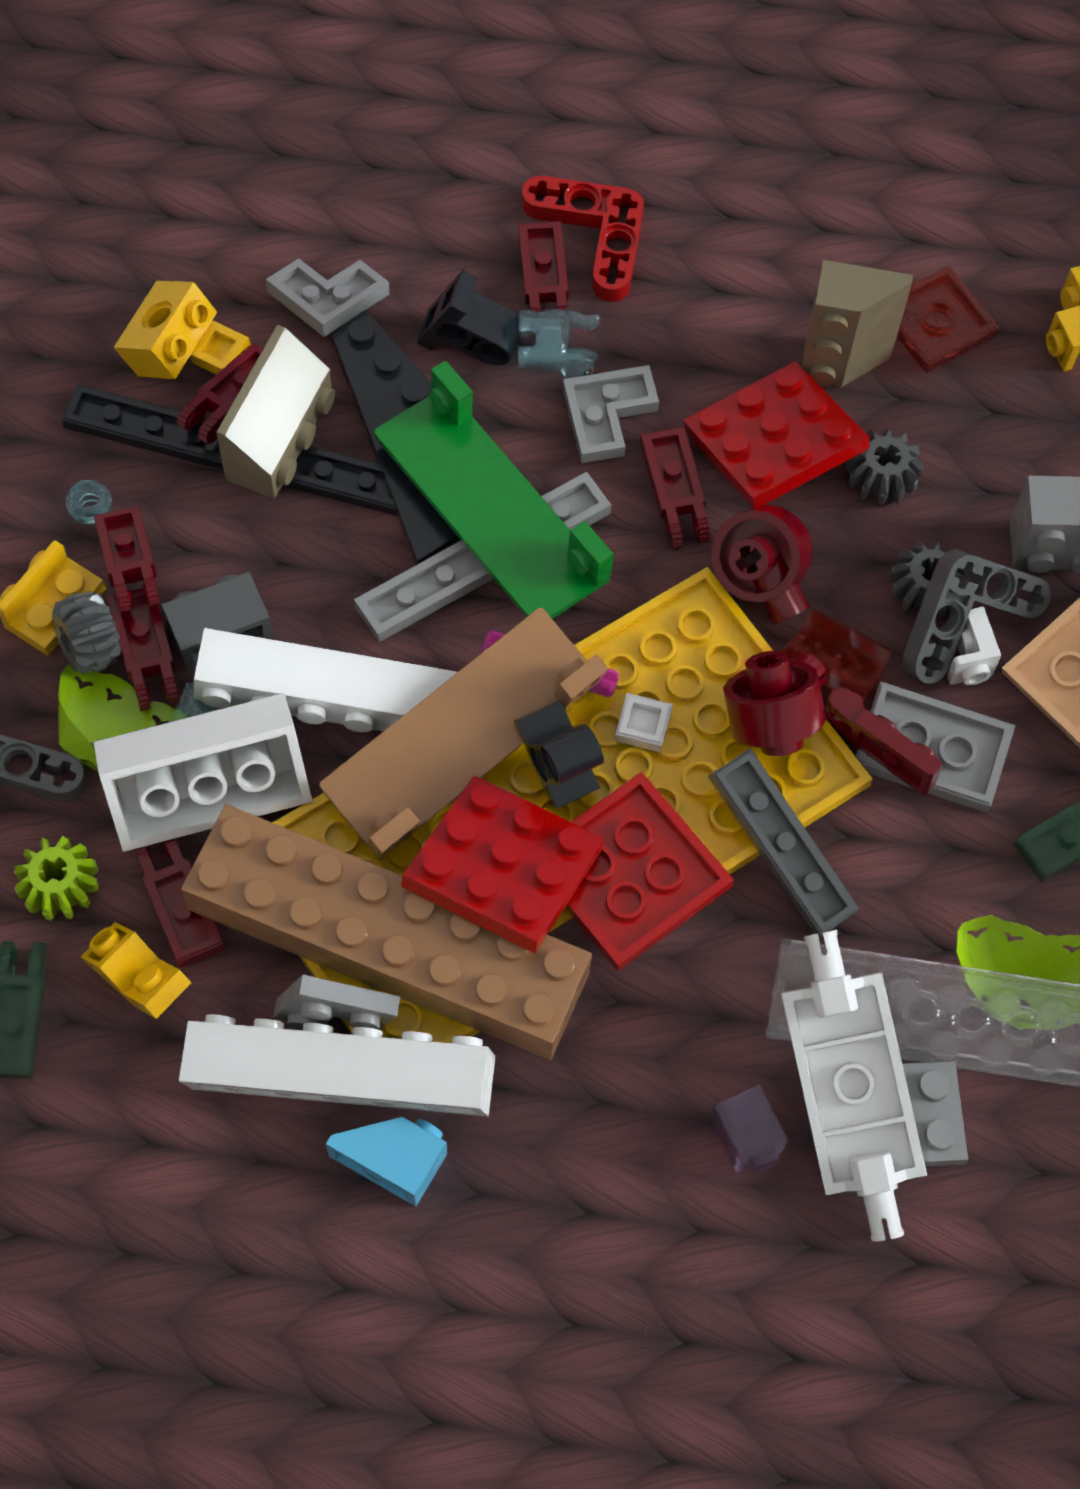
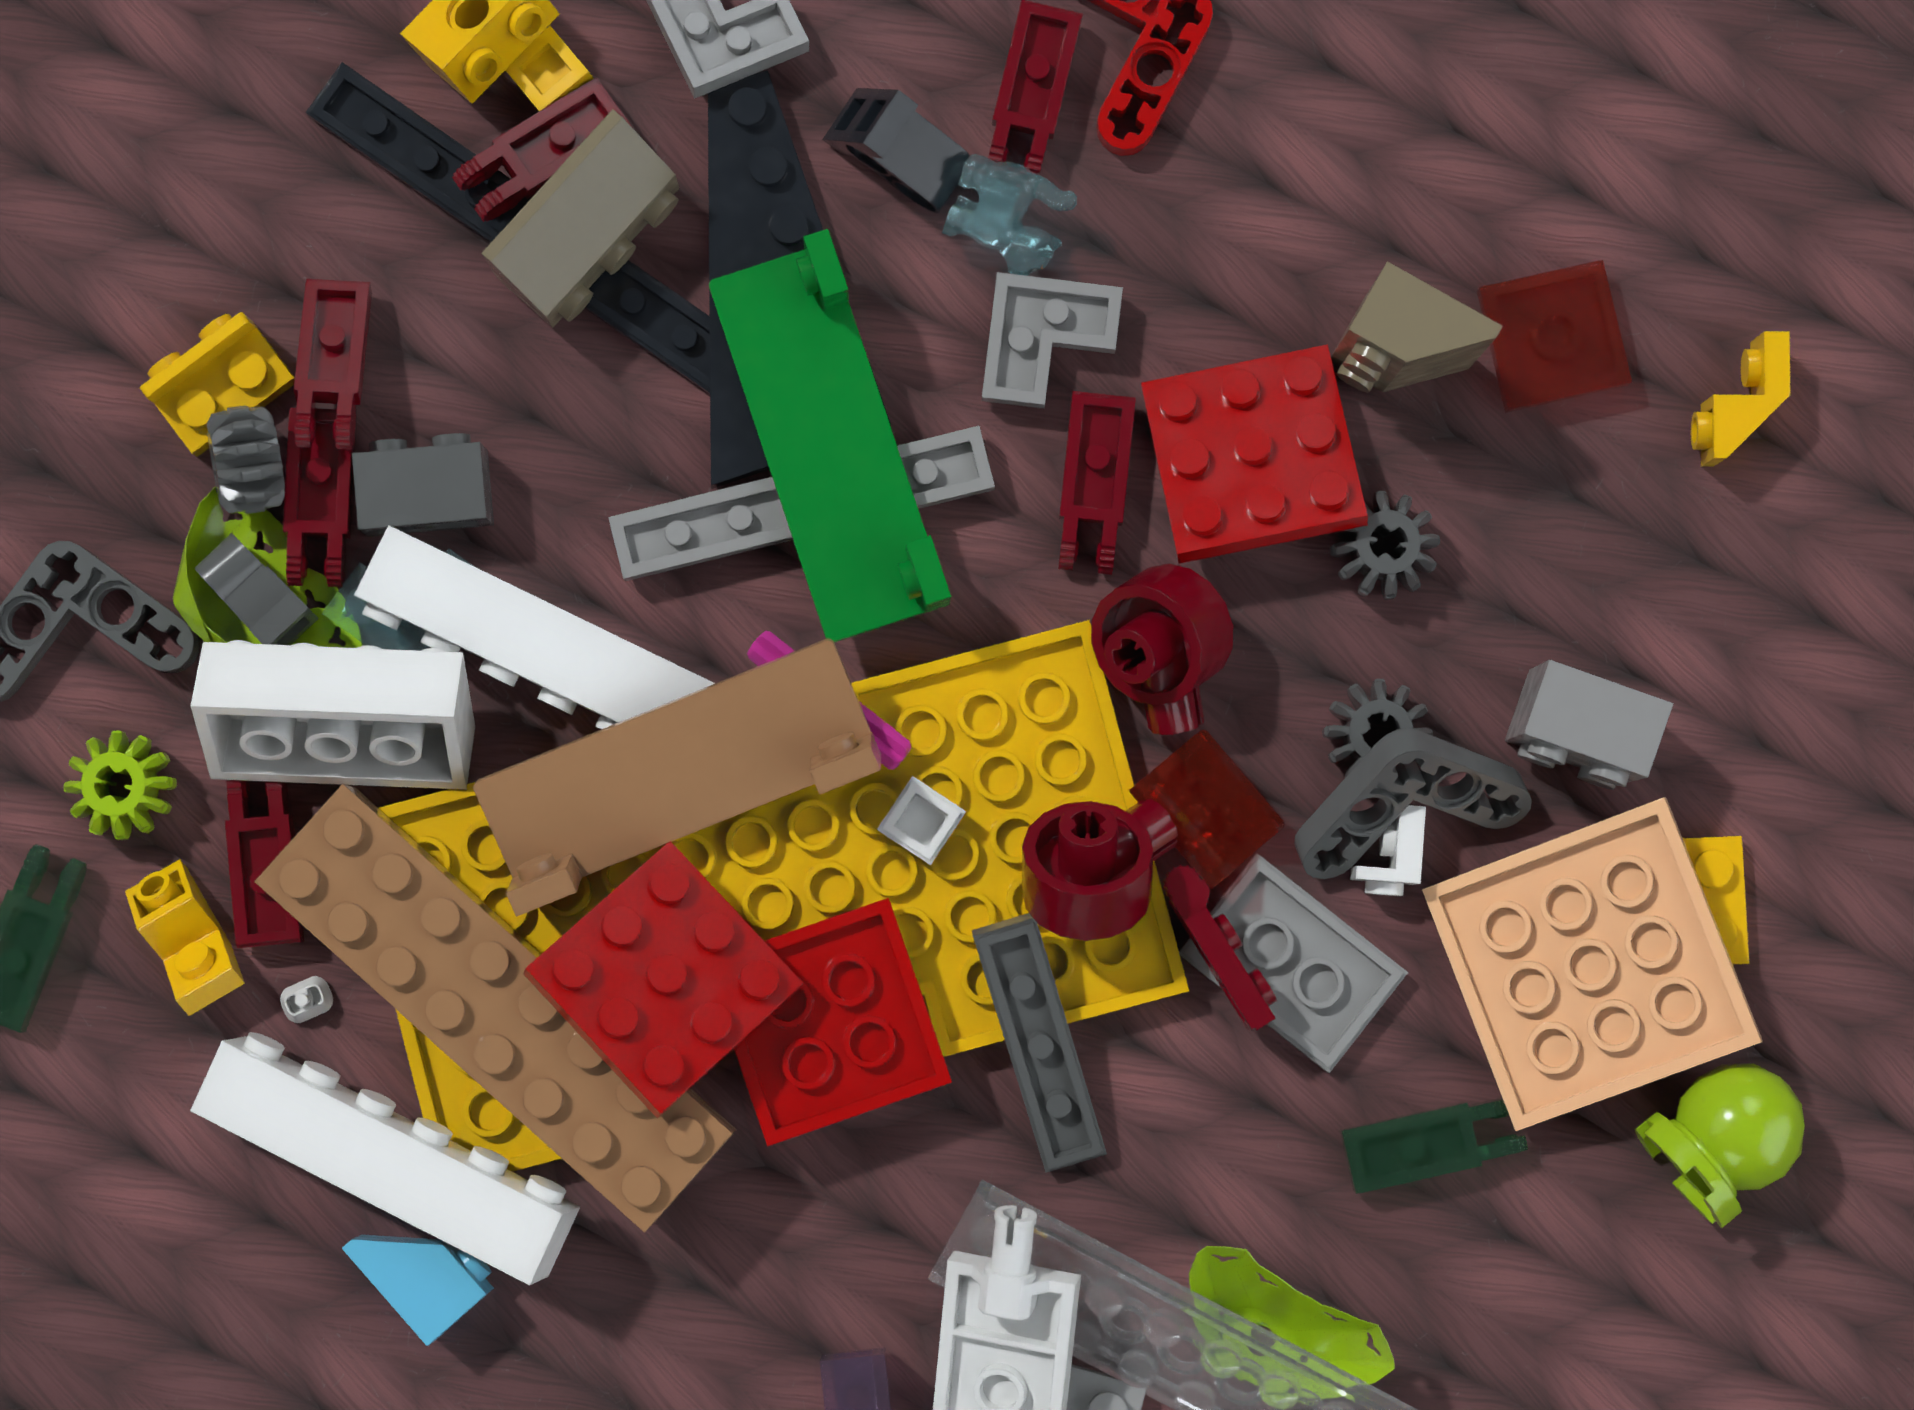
camera: 20 degrees right, 20 degrees up
(87, 491) = (297, 235): clear light blue plate -> none
(108, 714) = (255, 594): none -> dark grey leg
(239, 990) = (306, 999): none -> white rock
(321, 1000) = (387, 1074): light grey plate -> none
(561, 753) = (787, 840): black tile -> none

